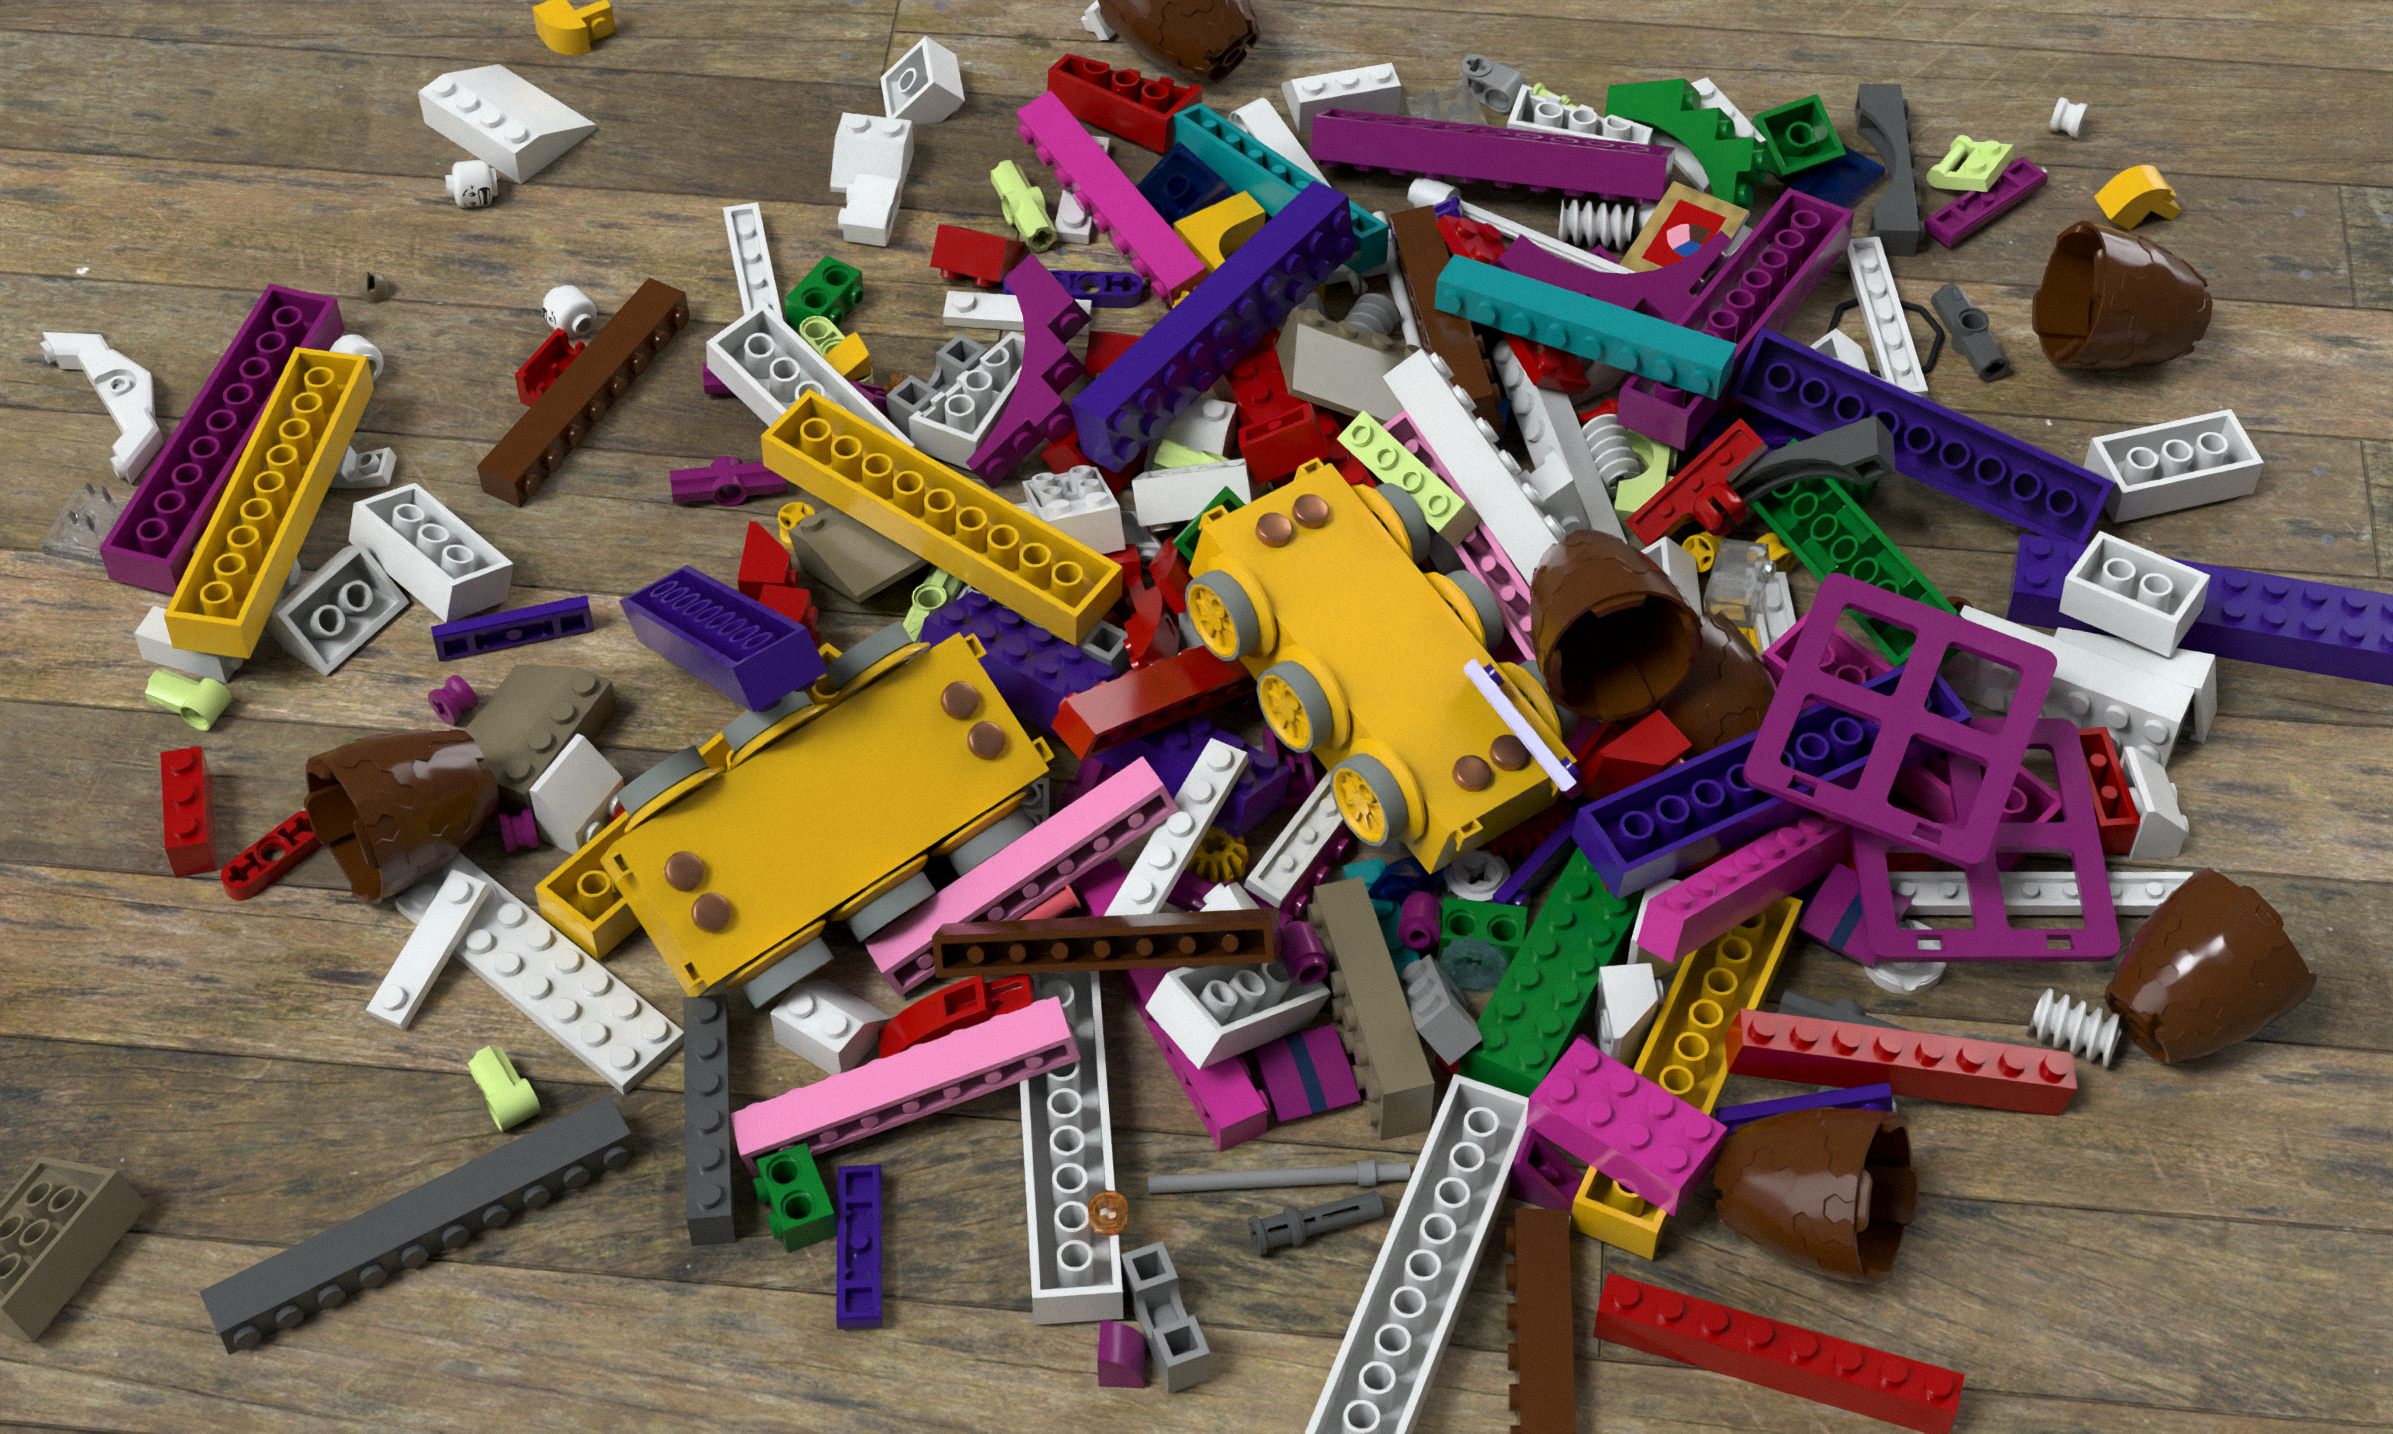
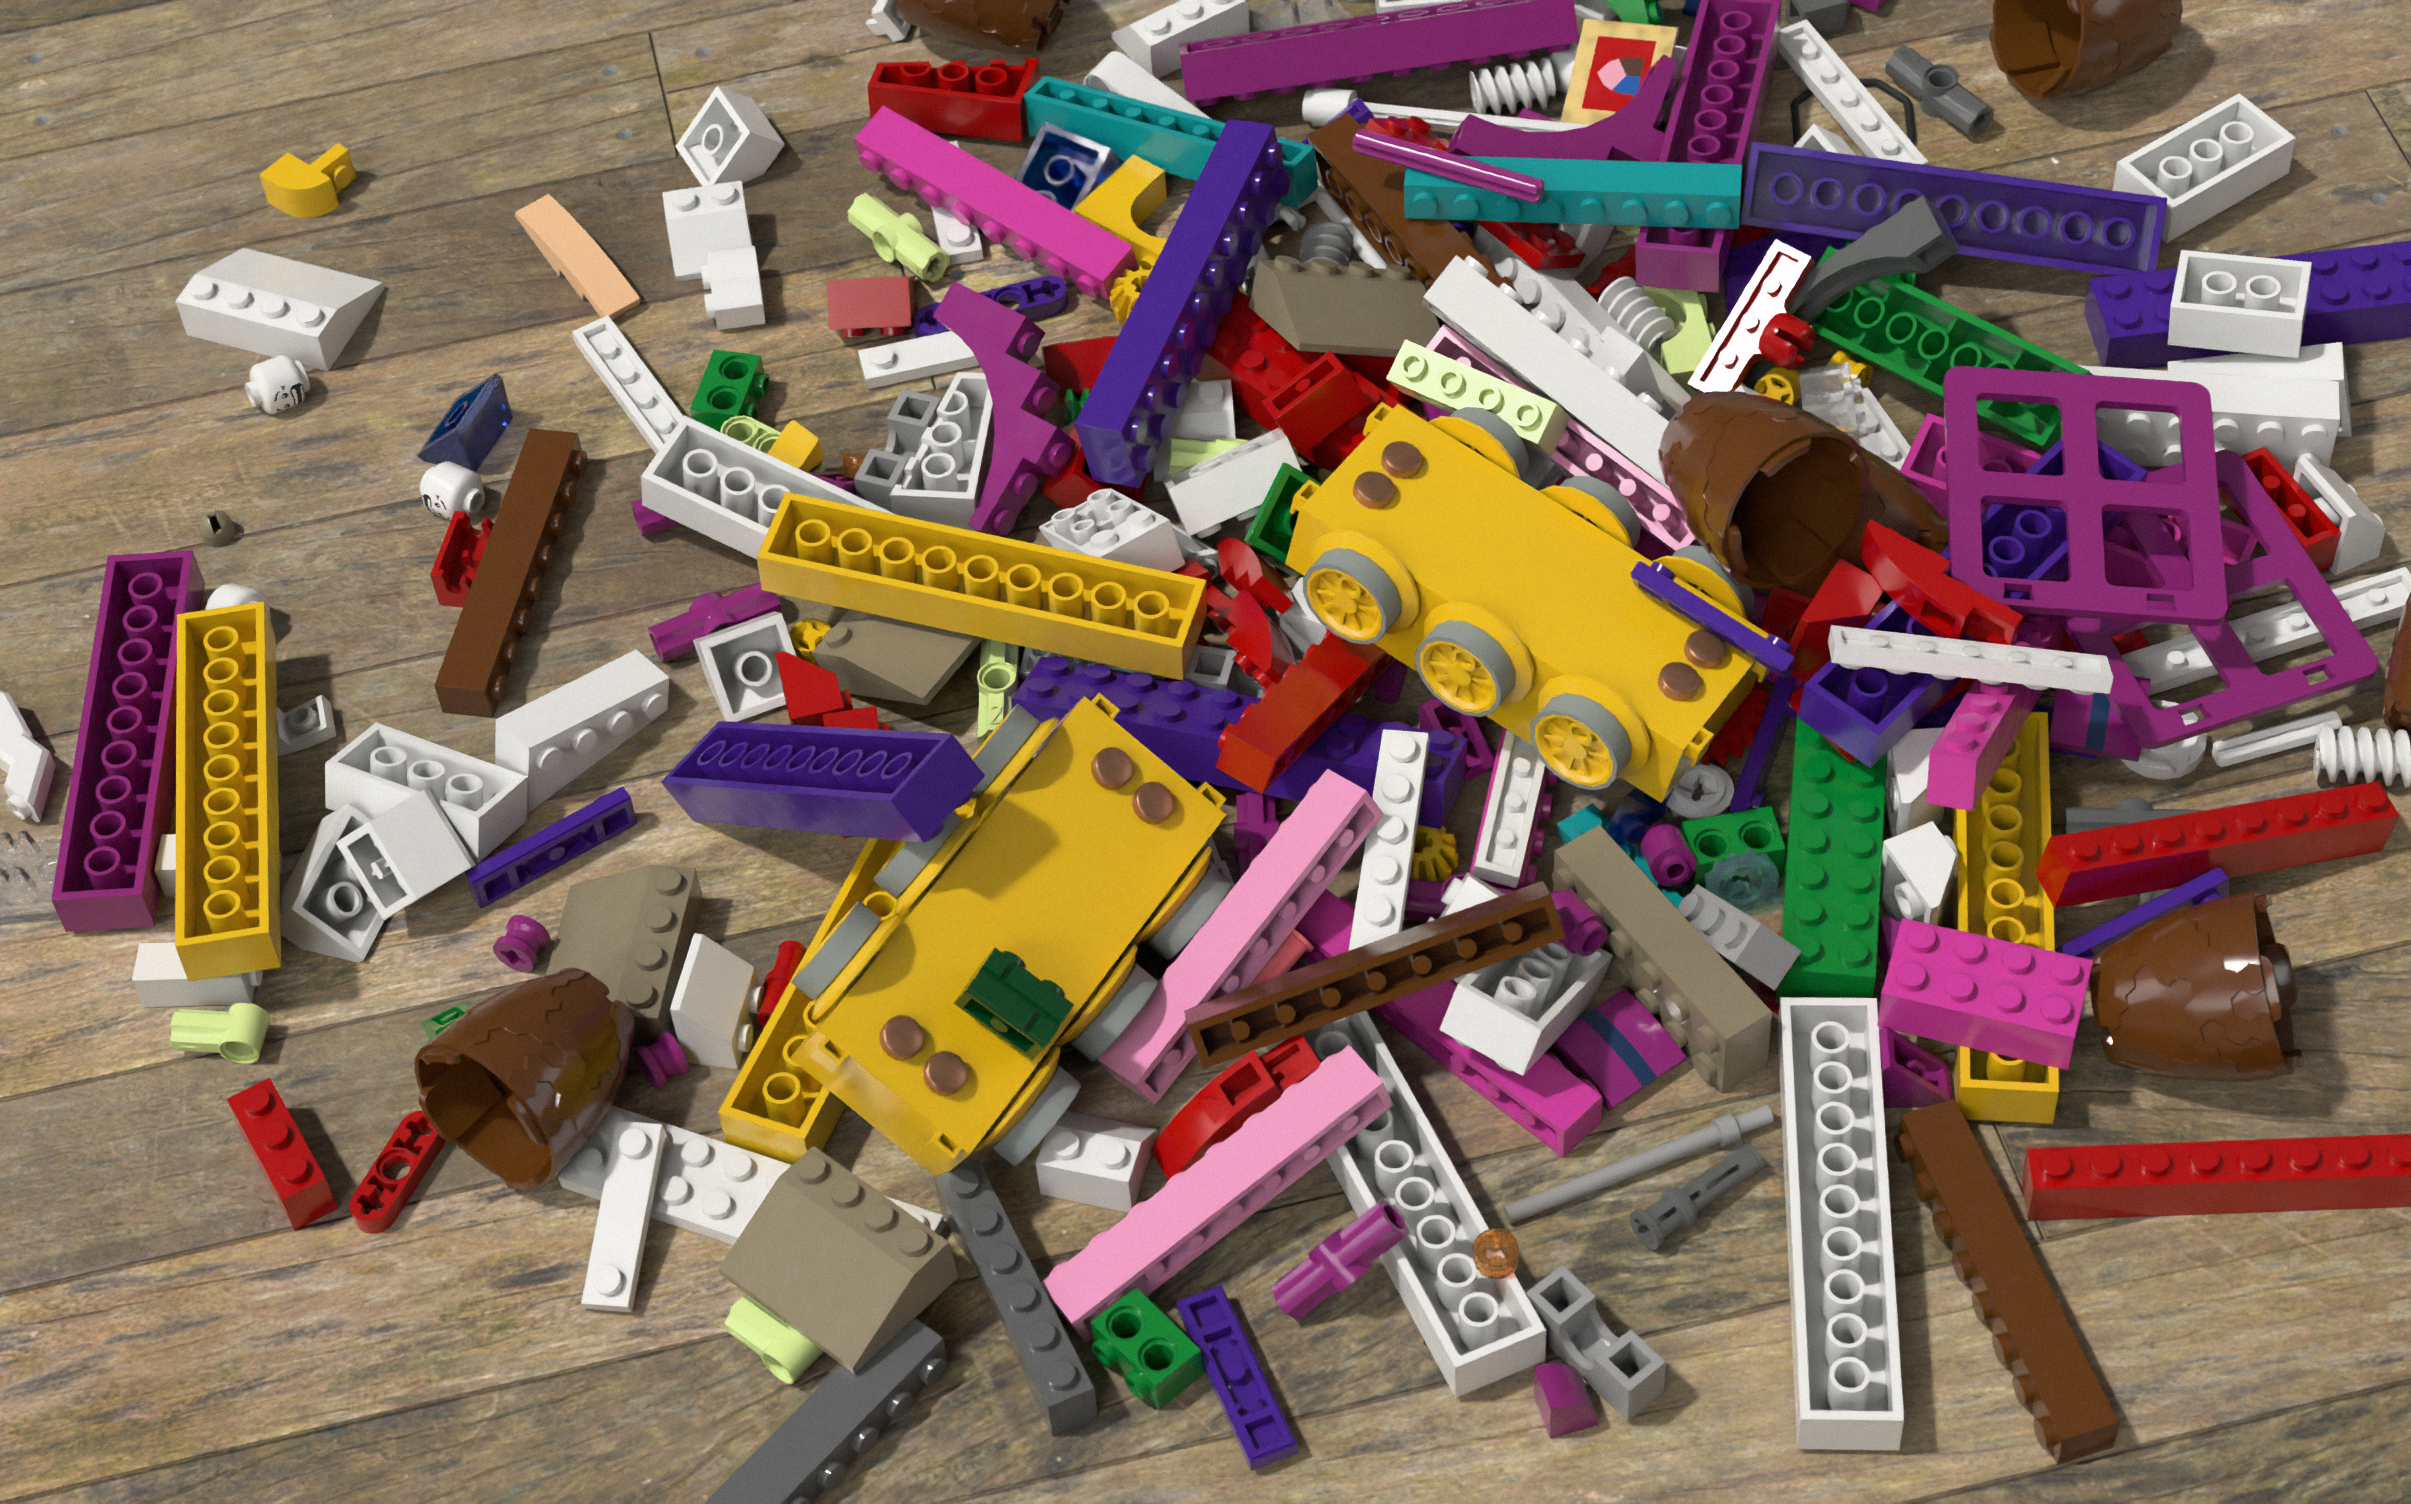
camera: 15 degrees left, 0 degrees up
(386, 597) = (405, 853): none -> white slope
(574, 1041) = (838, 1260): none -> dark tan slope
(577, 534) = (579, 724): none -> white wedge
(608, 264) = (470, 426): none -> clear blue slope
(725, 523) = (744, 666): none -> white slope
(756, 148) = (577, 257): none -> light nougat slope
(788, 870) = (1014, 1002): none -> dark green brick
(981, 1175) = (1340, 1259): none -> magenta piece
(1481, 273) = (1449, 166): none -> magenta axle
(1717, 757) = (1920, 585): none -> red slope
(1730, 831) = (1970, 659): none -> white plate
(2005, 987) = (2273, 738): none -> white axle

